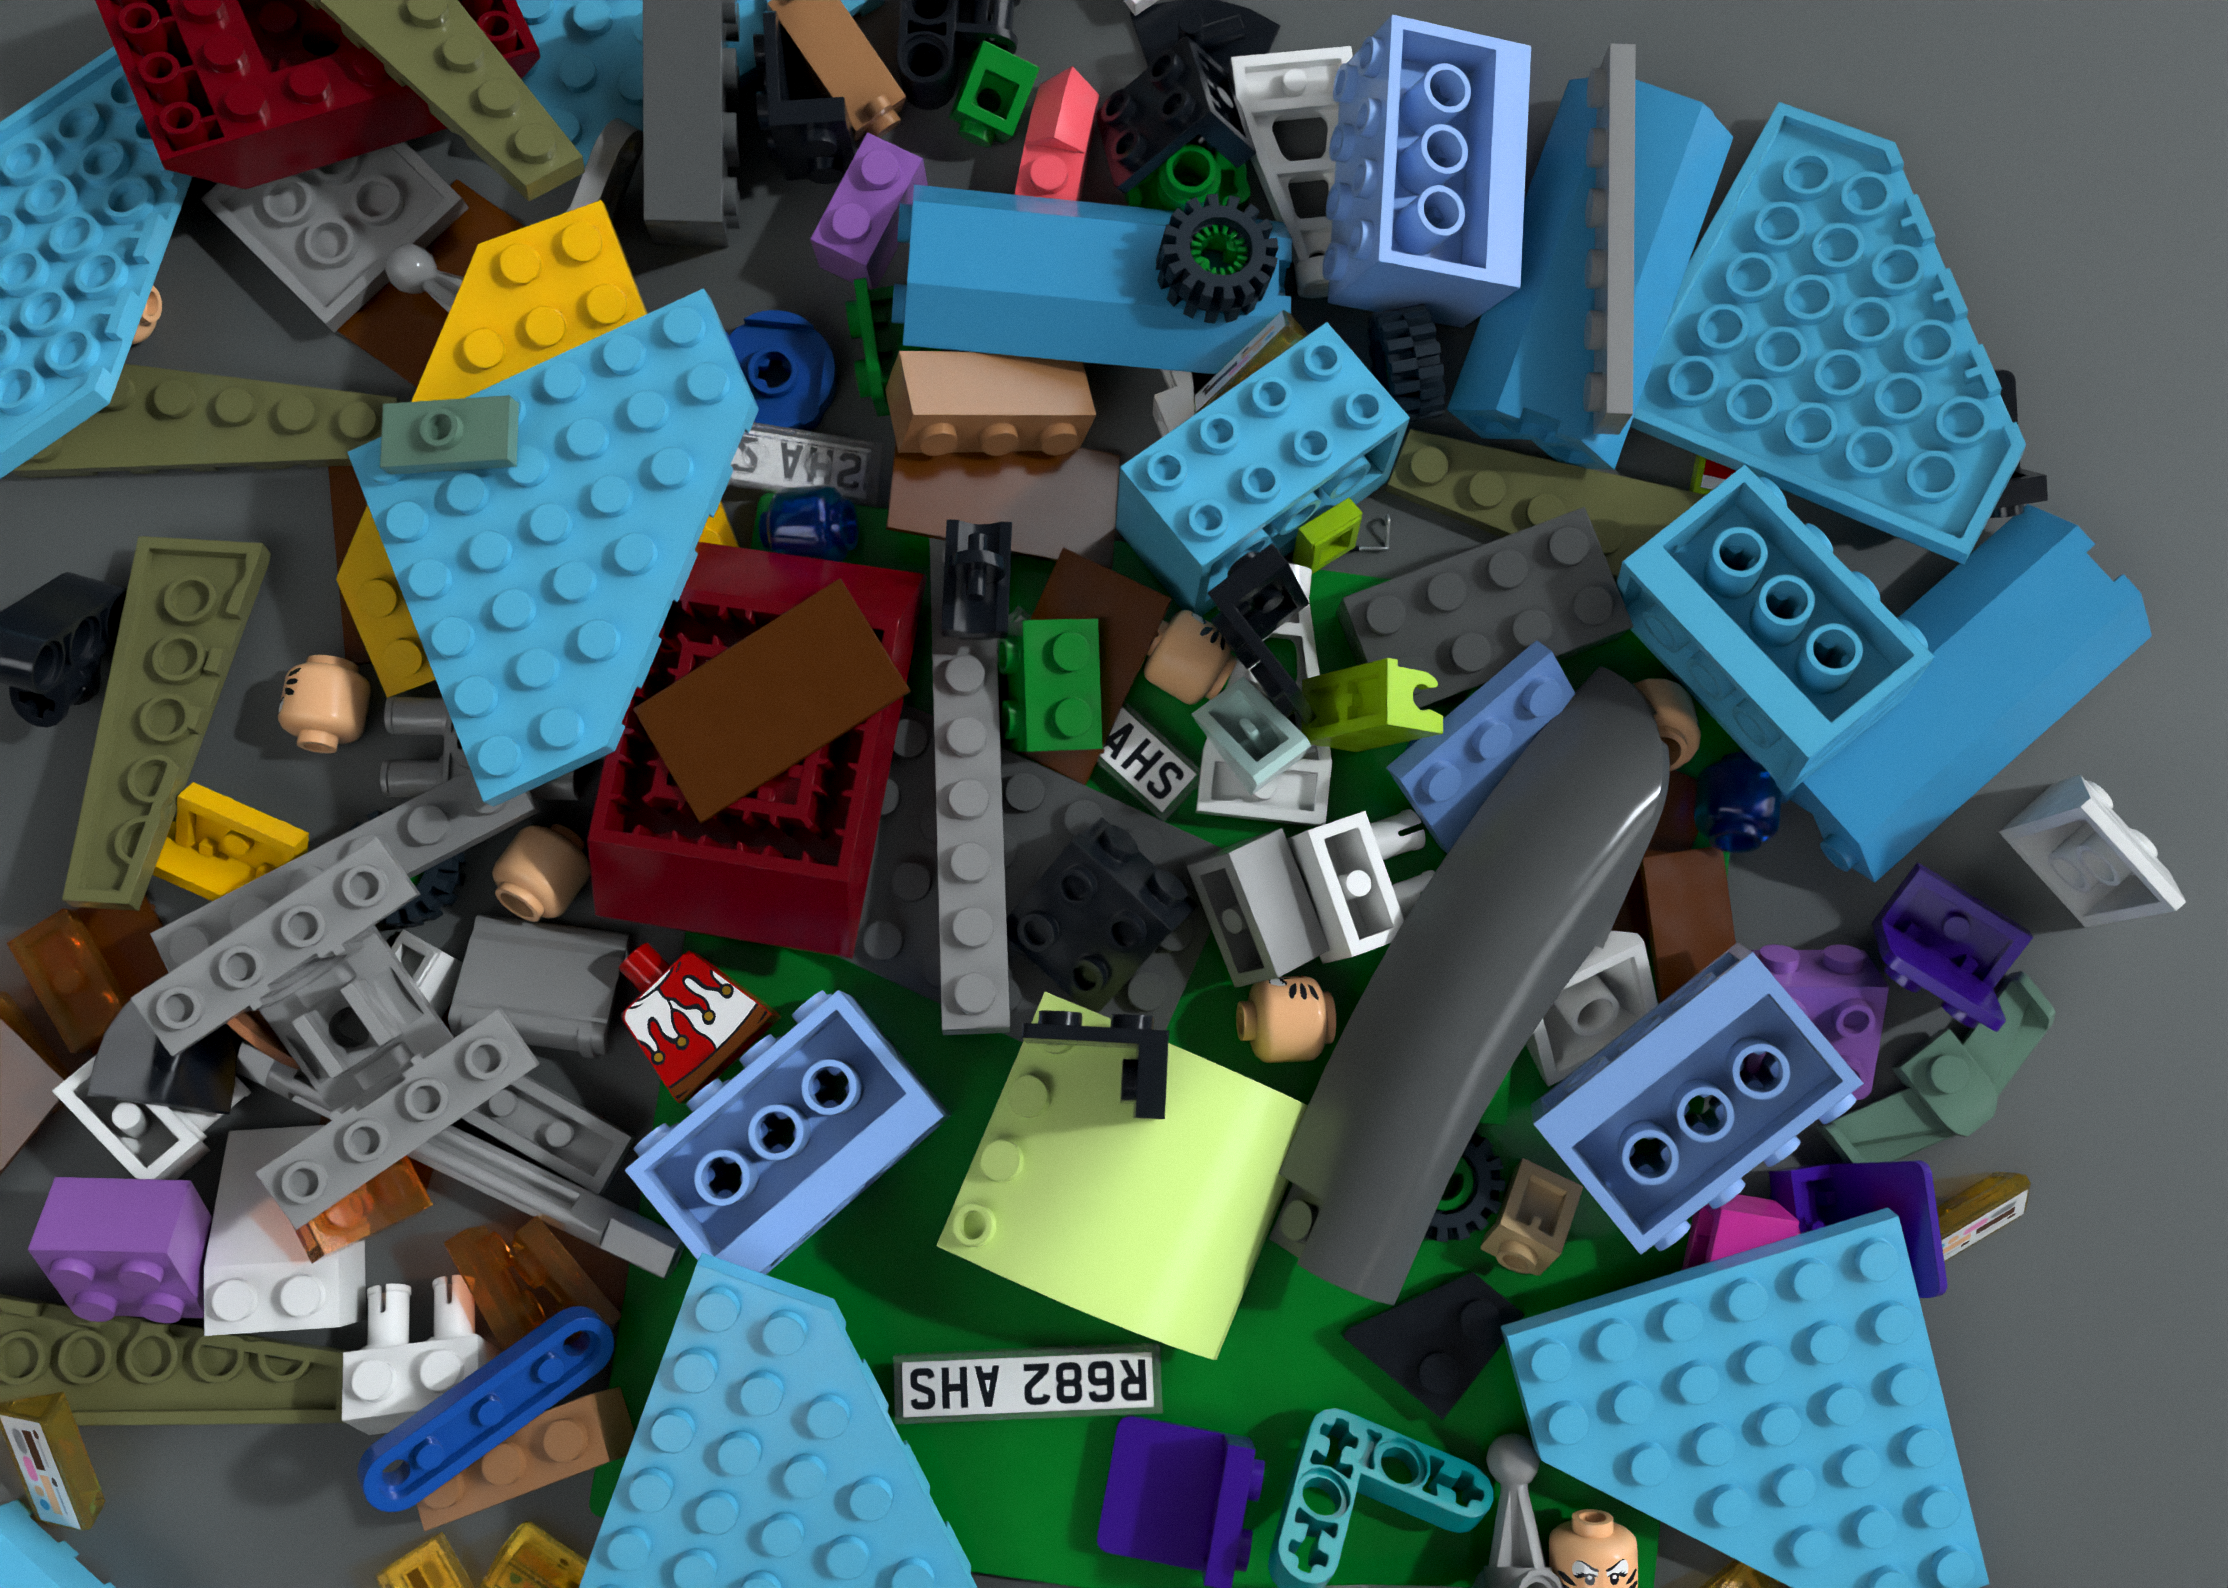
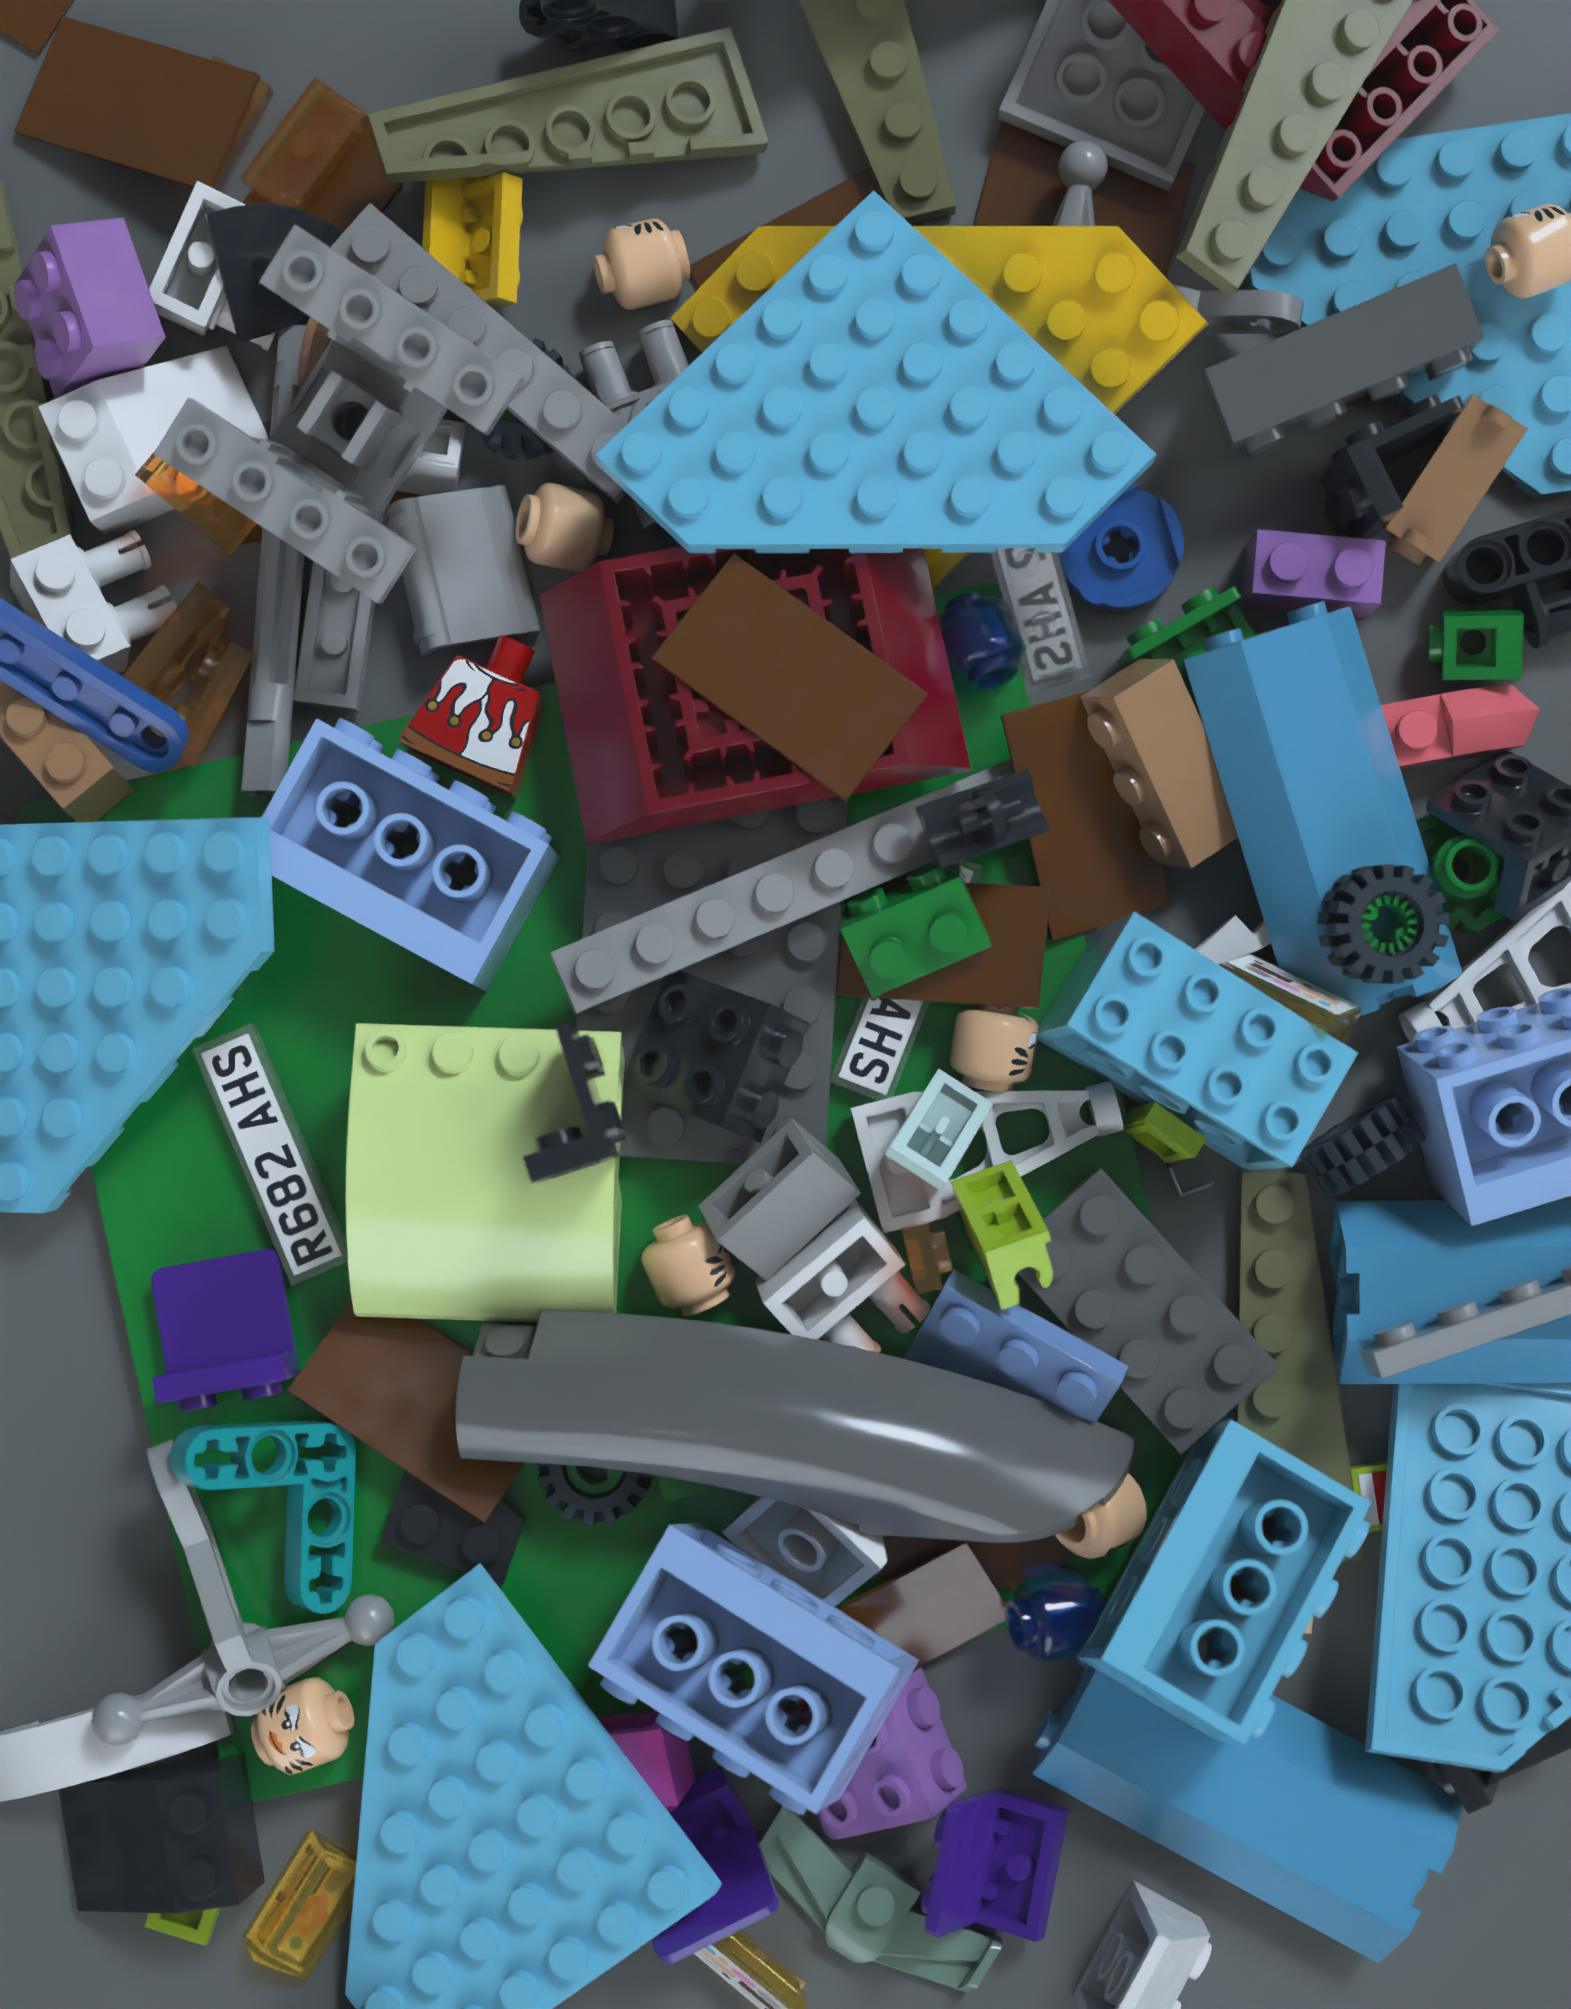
camera: 75 degrees right, 5 degrees up
(449, 435) = (921, 279): sand green plate -> none
(1252, 604) = (1056, 1083): black bracket -> none
(1311, 1343) = (398, 1394): none -> reddish brown piece
(1363, 788) = (927, 1255): none -> clear orange plate
(1532, 1219) = (591, 1559): tan bracket -> none

